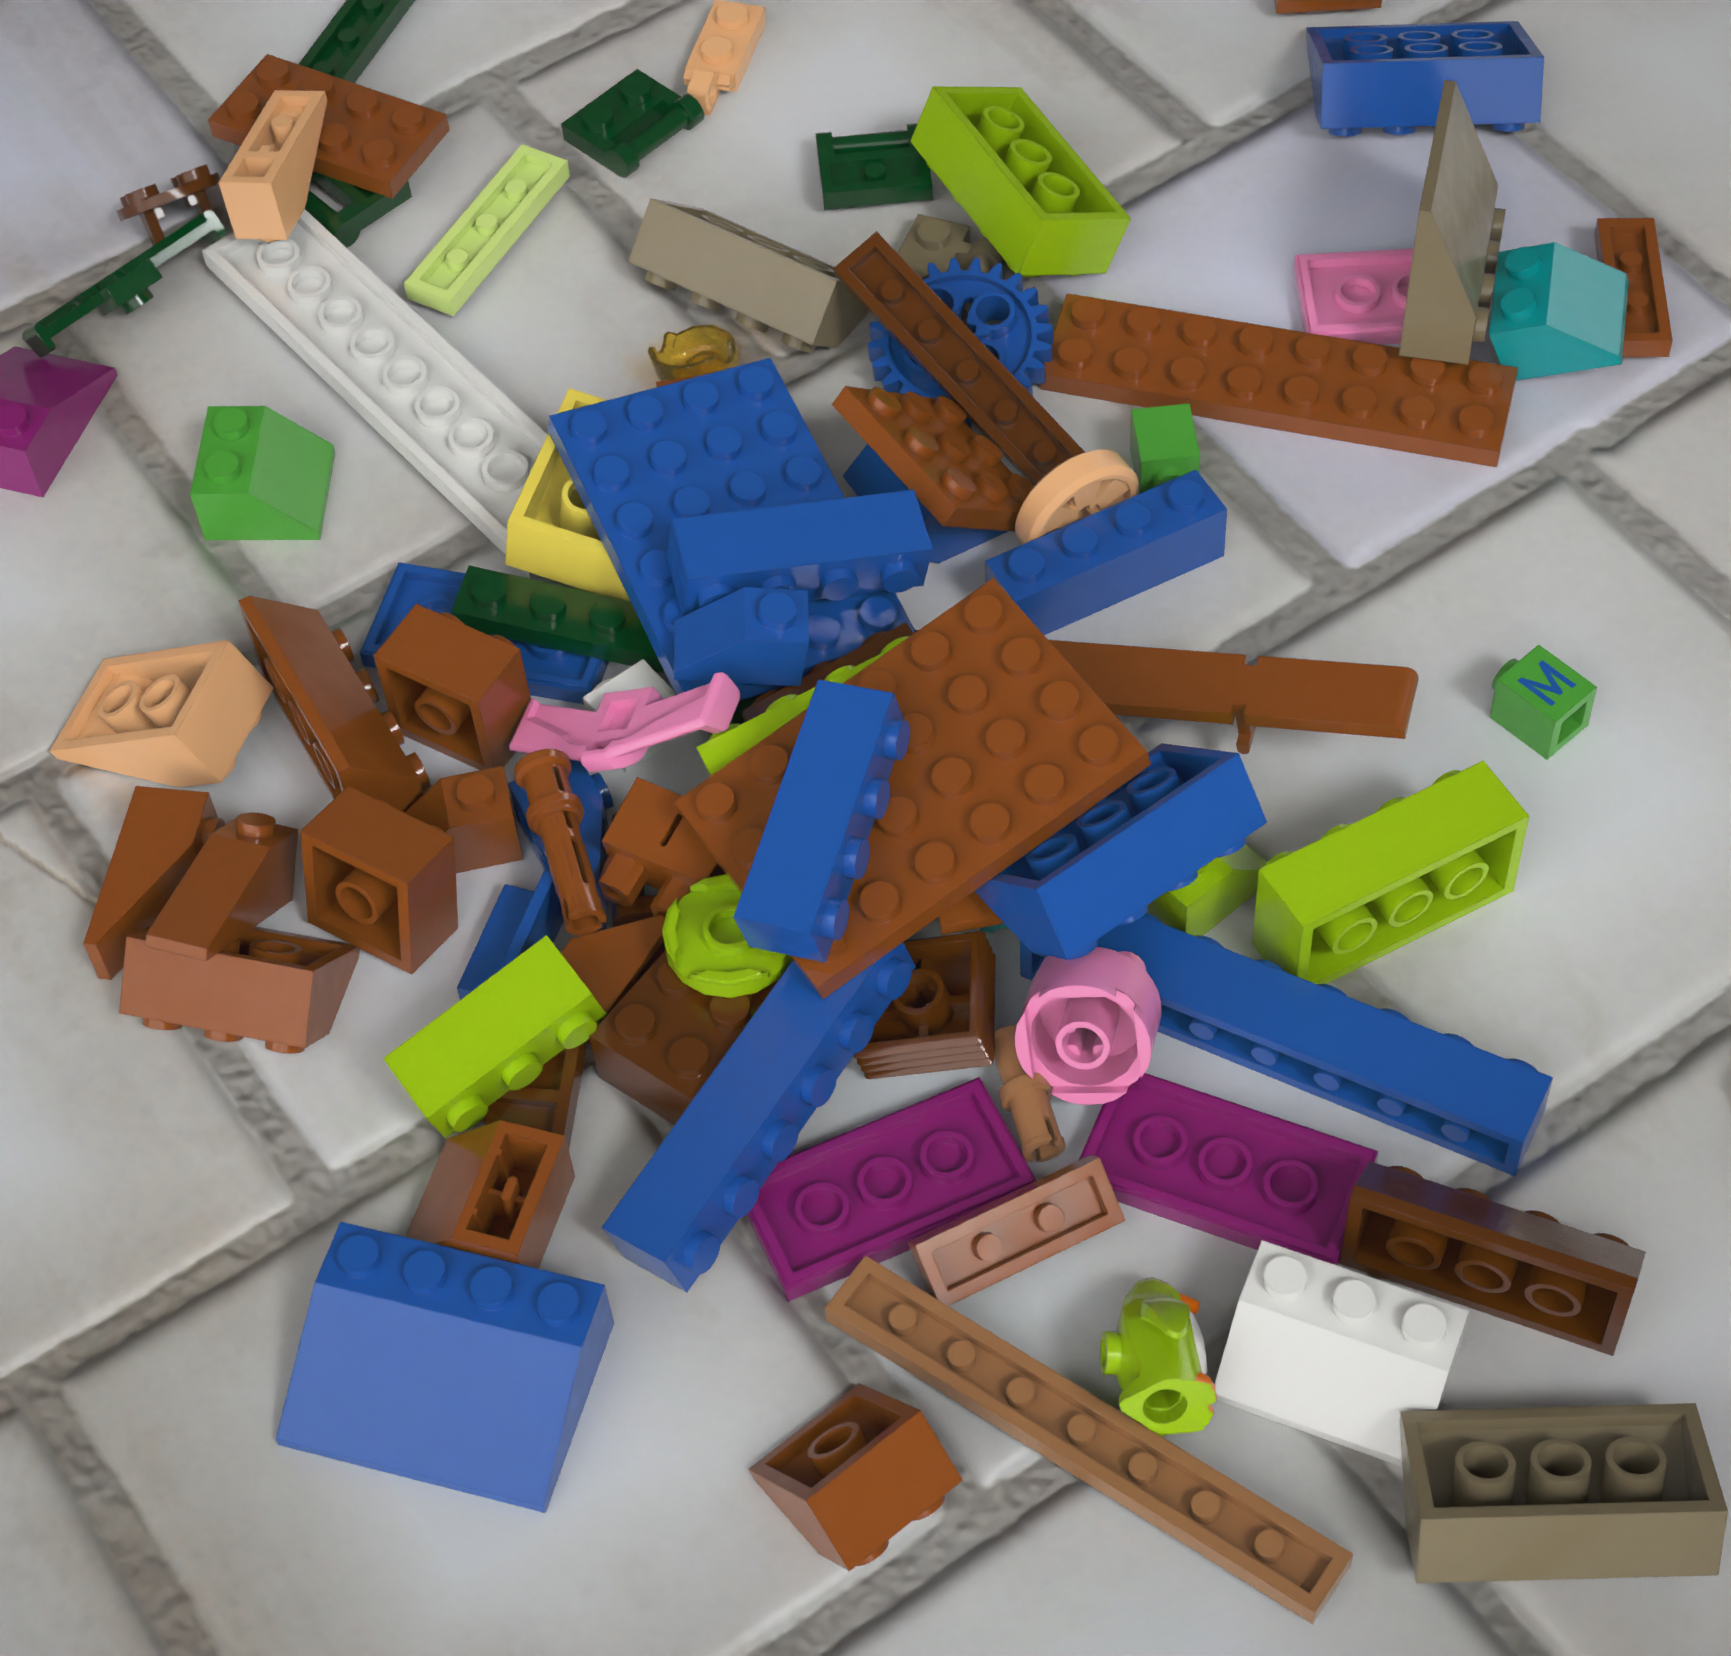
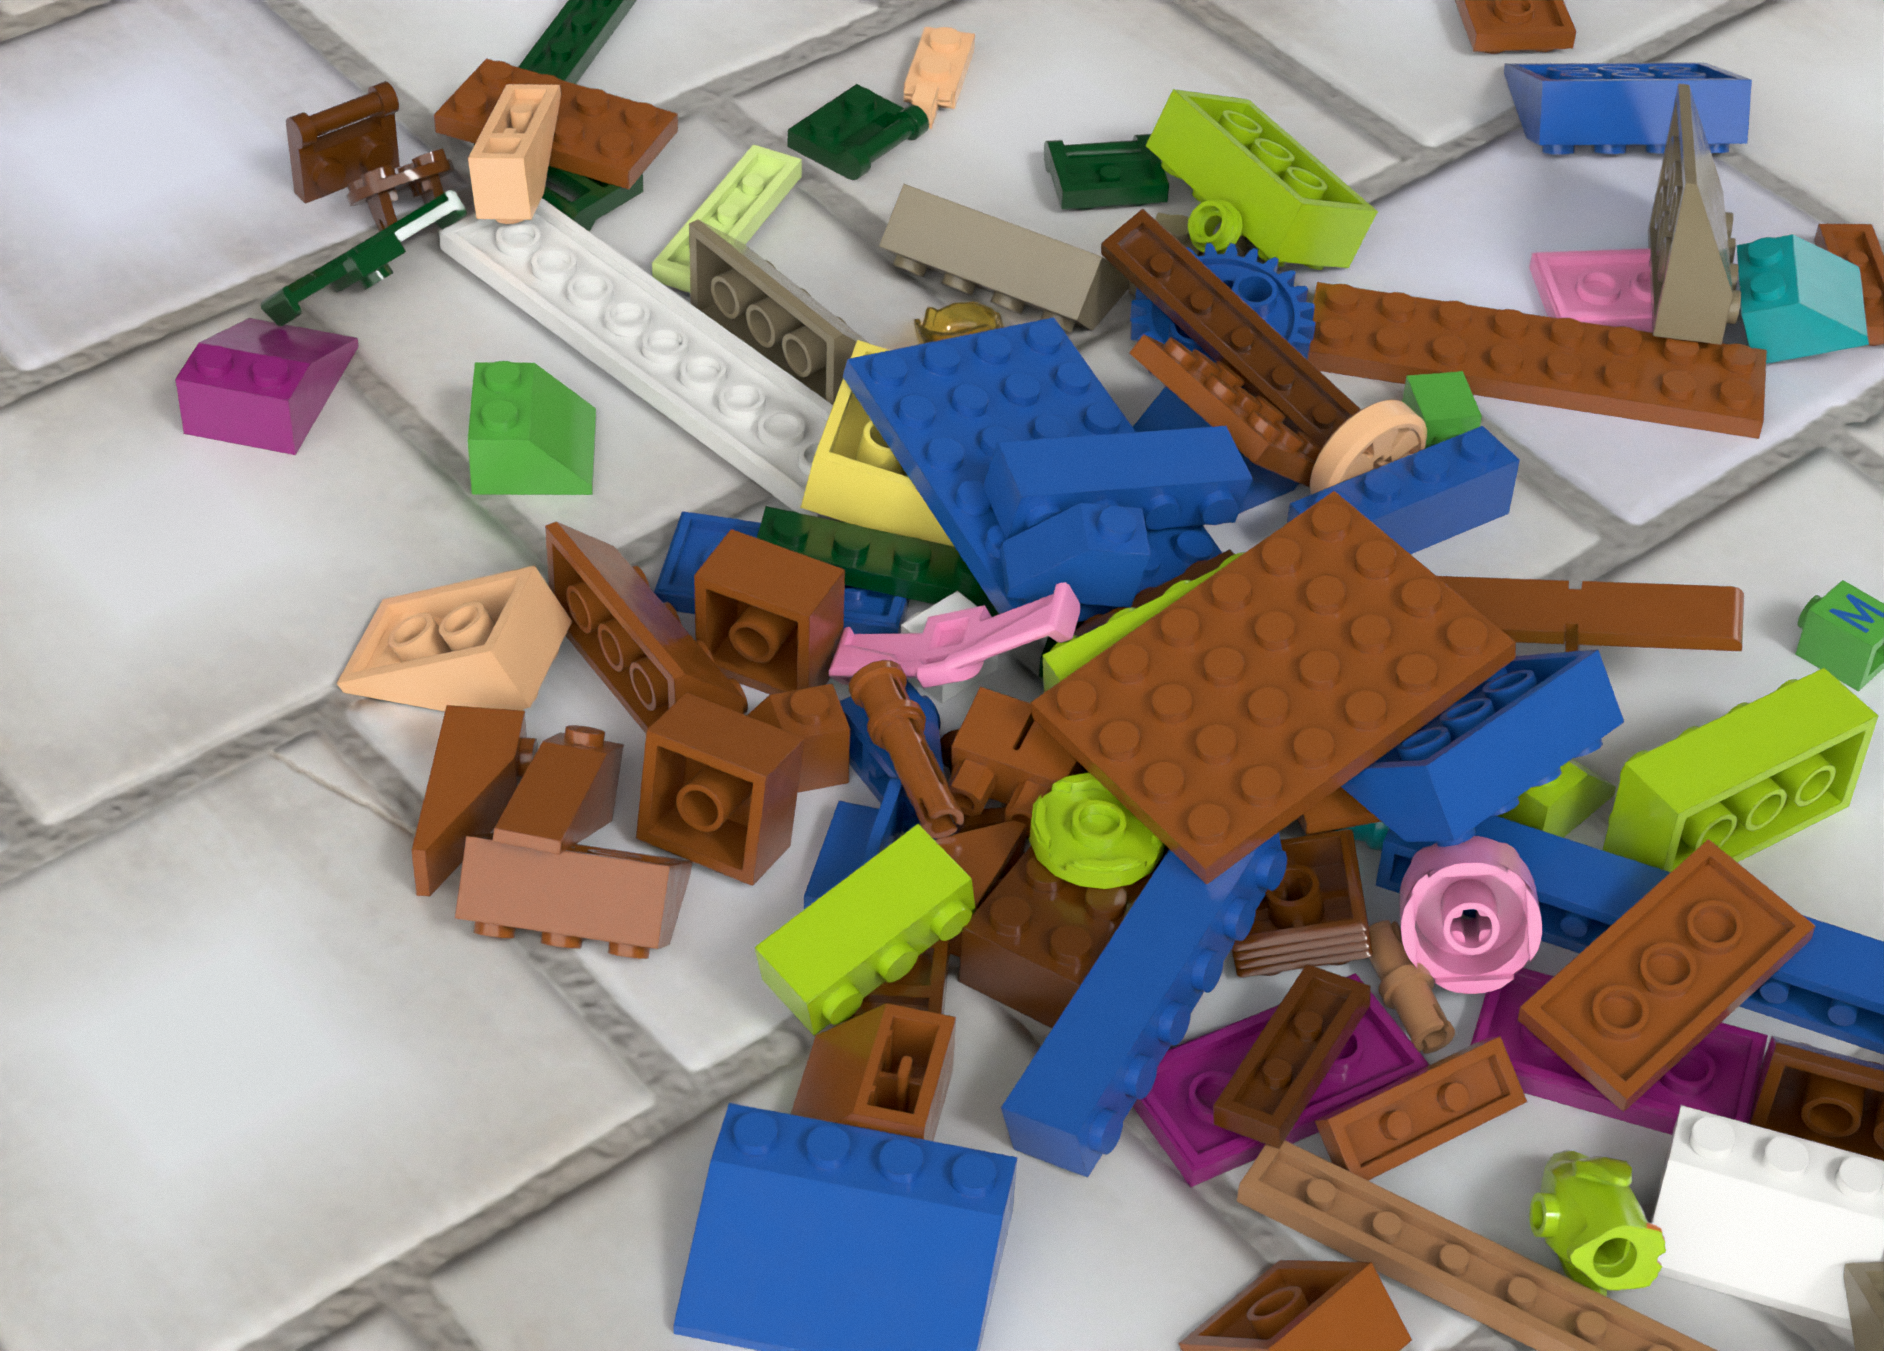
camera: 10 degrees left, 10 degrees down
(119, 153) = (340, 157): none -> reddish brown plate
(508, 338) = (768, 310): none -> dark tan slope
(822, 821) = (1200, 707): blue brick -> none
(893, 1174) = (1292, 1056): none -> reddish brown plate
(963, 236) = (1205, 219): none -> lime plate
(1273, 1094) = (1665, 974): none -> dark orange plate

